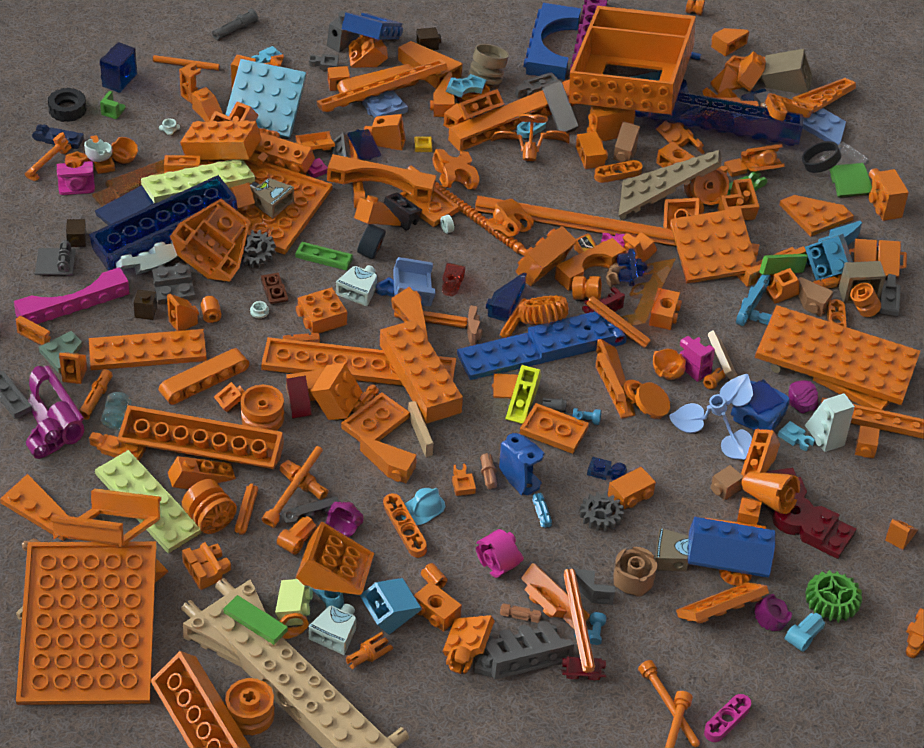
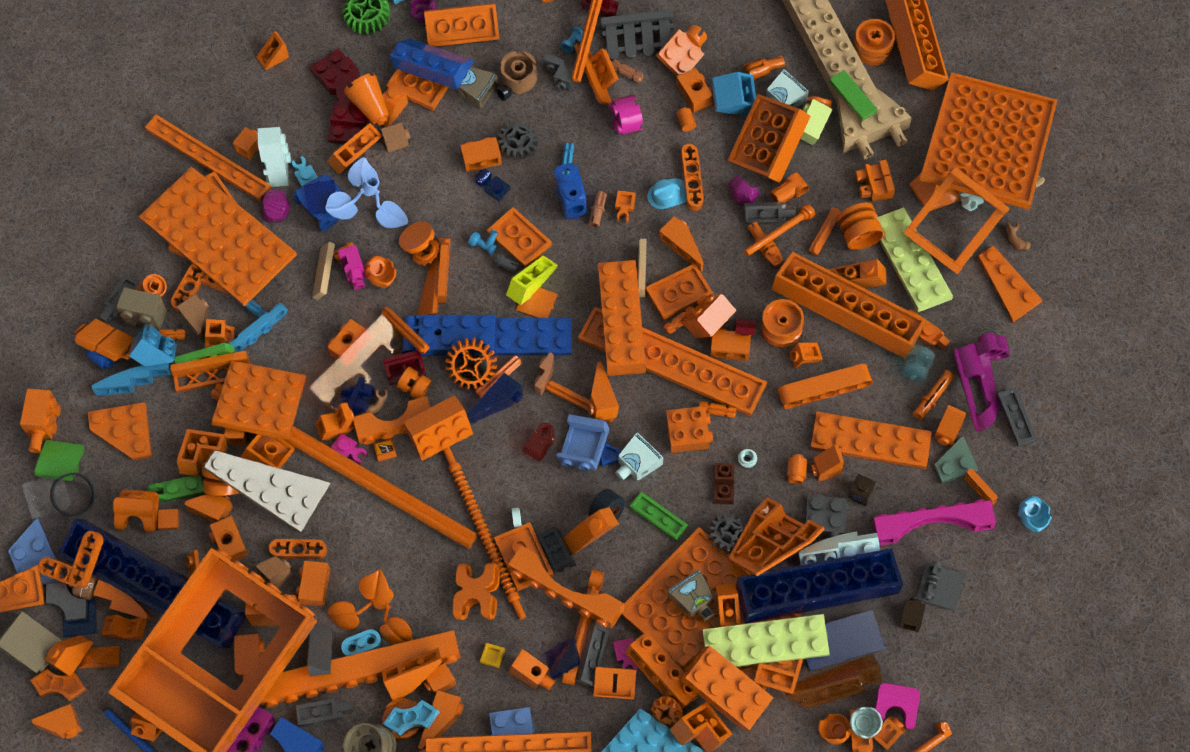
camera: 155 degrees left, 20 degrees up
(508, 214) = (456, 498): orange piece -> none

